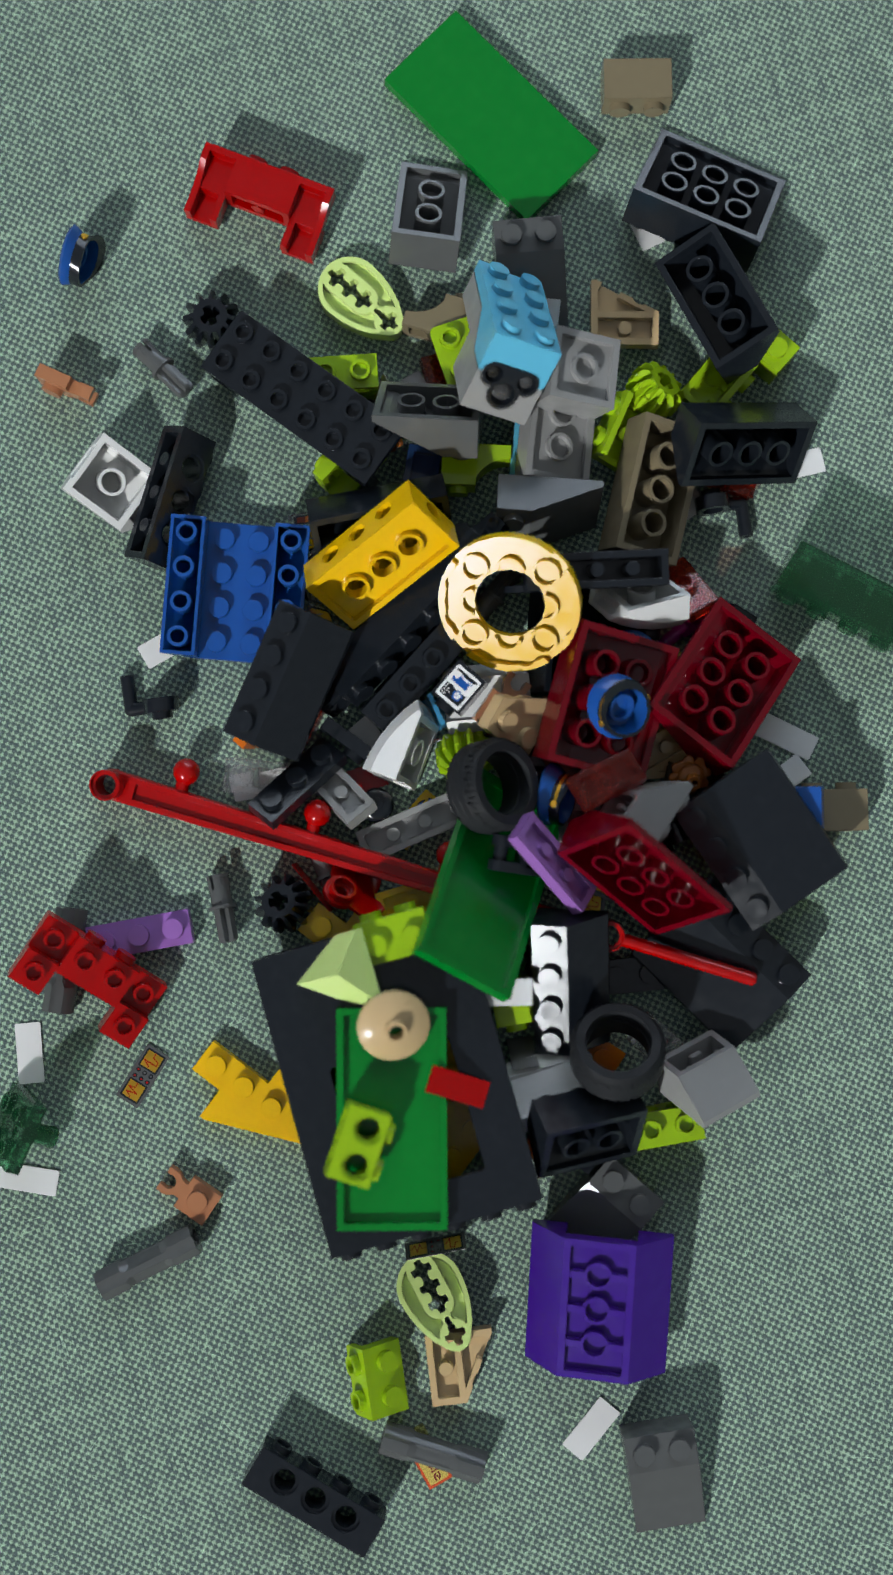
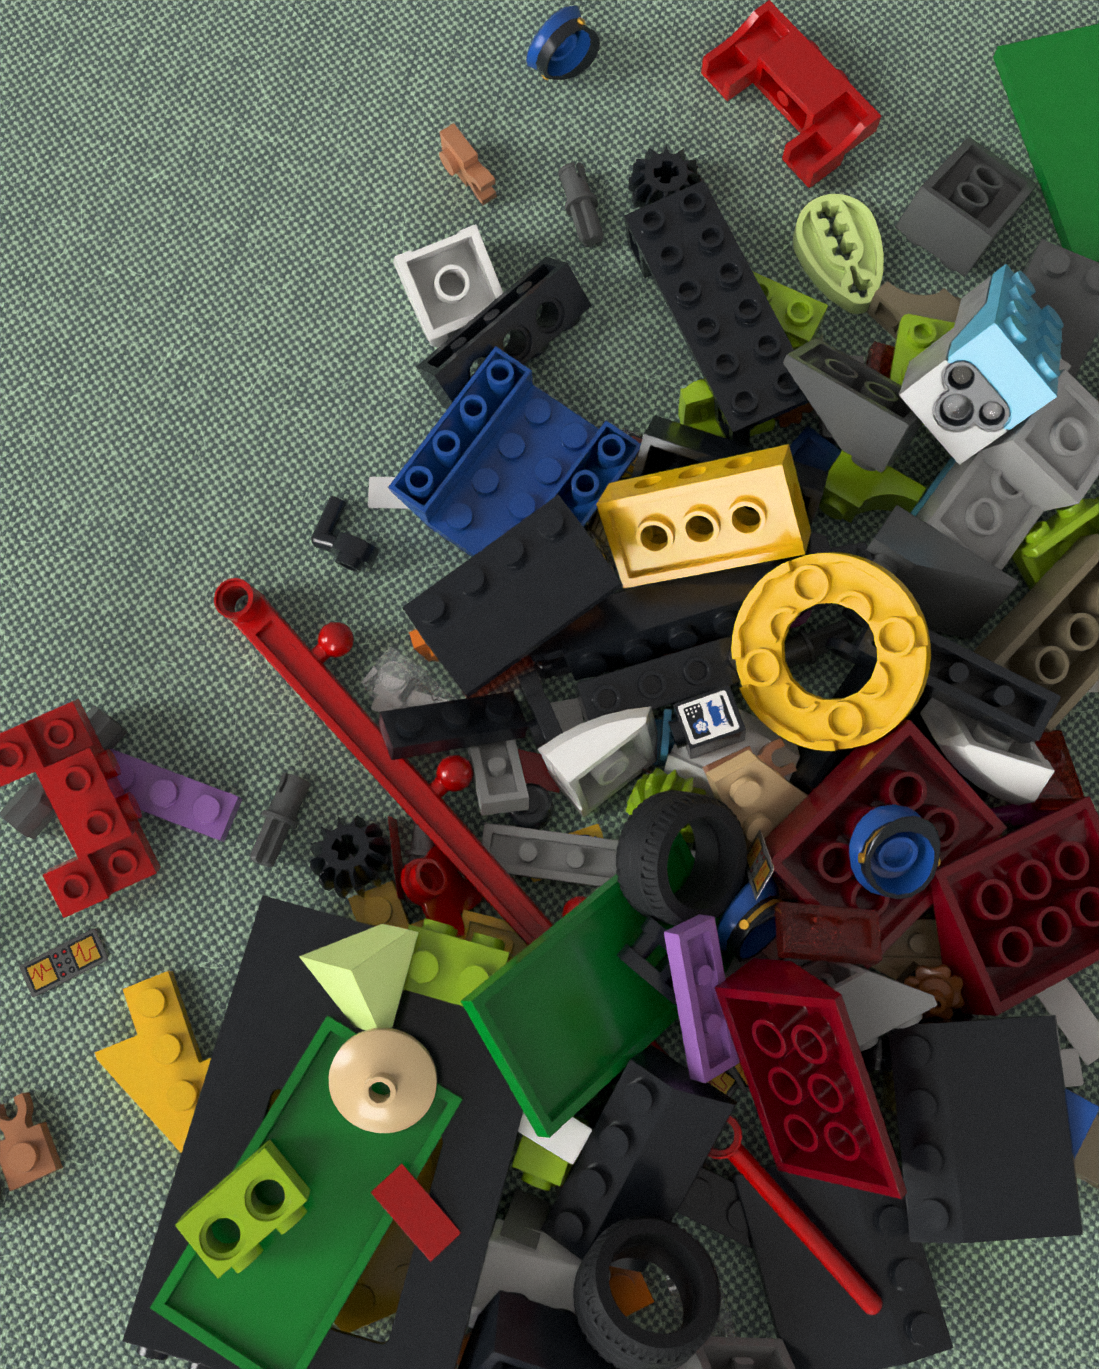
camera: 40 degrees right, 10 degrees down
(541, 762) = (759, 864): none -> sticker

